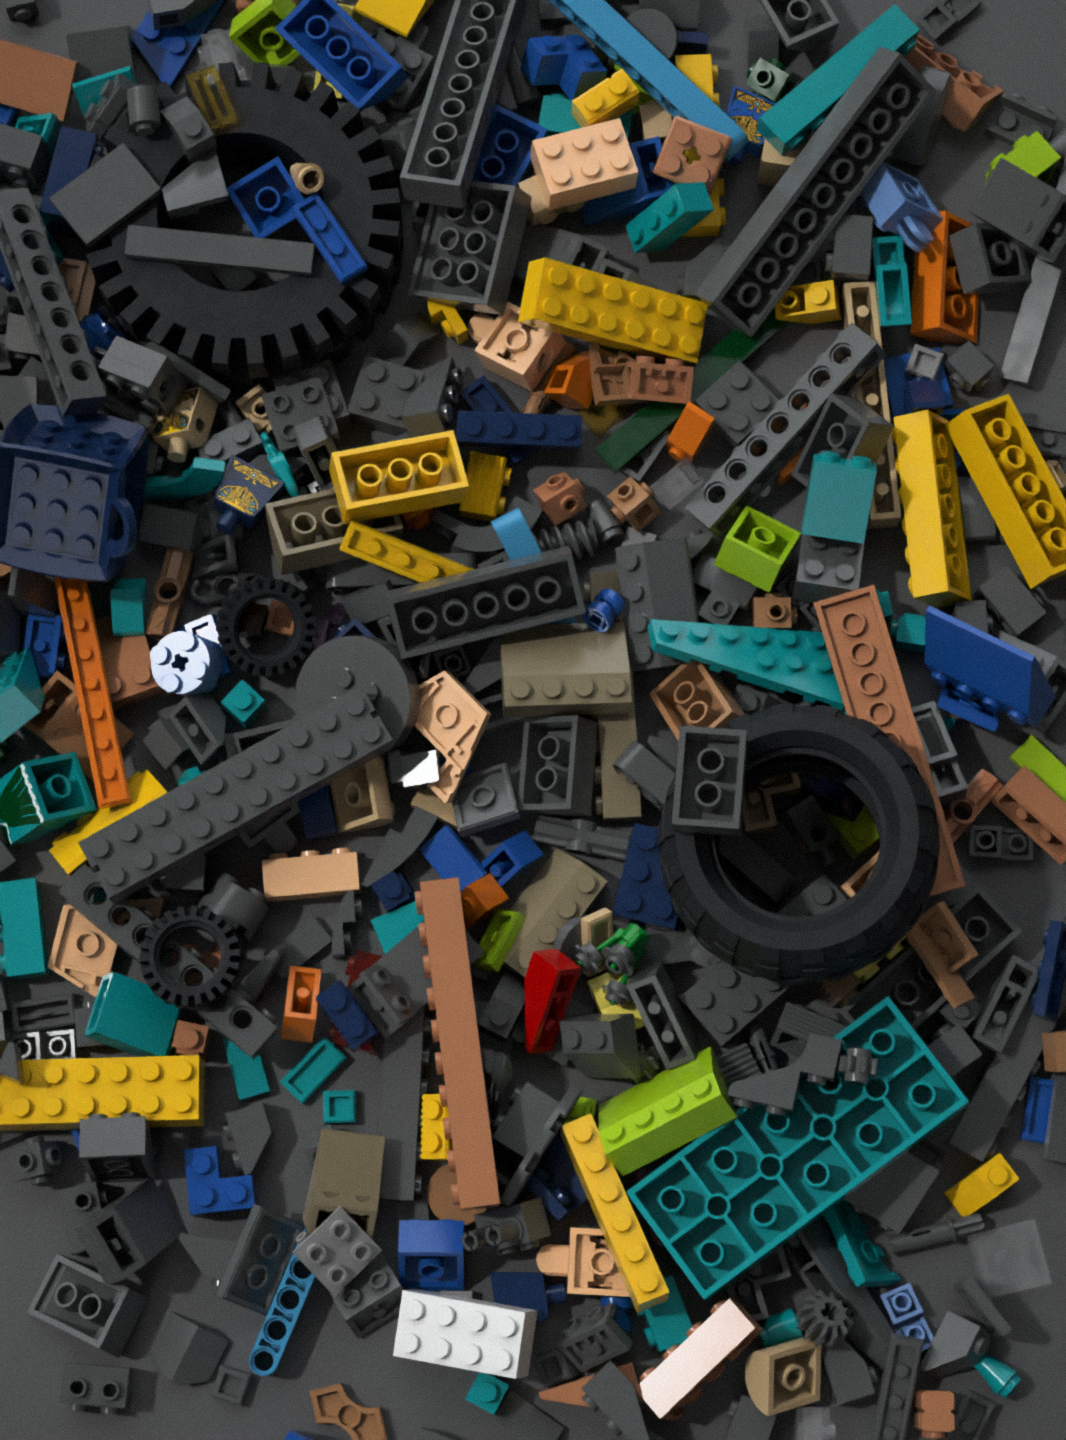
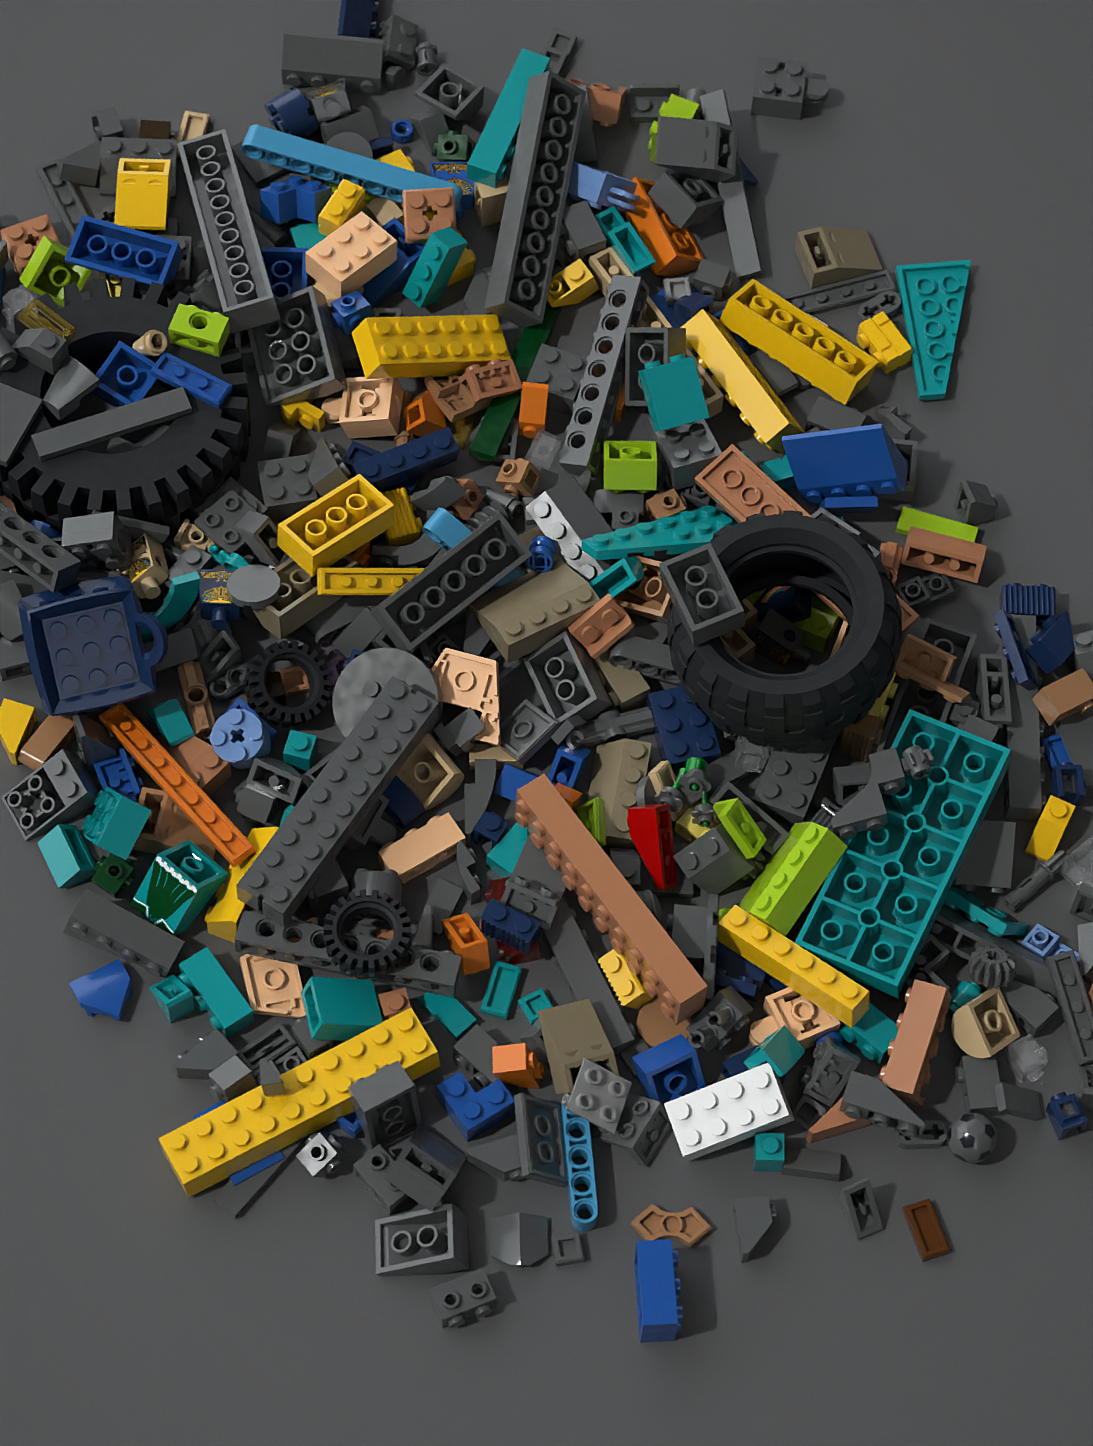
camera: 30 degrees left, 15 degrees down
(276, 506) = (253, 586): none -> tile
(278, 1169) = (517, 1065): none -> orange slope
(371, 201) = (206, 340): none -> lime brick
(528, 828) = (568, 730): none -> dark grey tile
(533, 487) = (440, 493): none -> dark grey slope
(543, 1299) = (779, 1050): none -> teal panel
(549, 230) = (349, 312): none -> blue brick
(621, 727) = (601, 626): none -> nougat bracket
(641, 1031) = (740, 826): none -> lime panel
(664, 683) = (618, 577): none -> teal brick
(731, 21) = (402, 138): none -> blue axle
(1027, 1146) = (1068, 783): none -> dark blue window

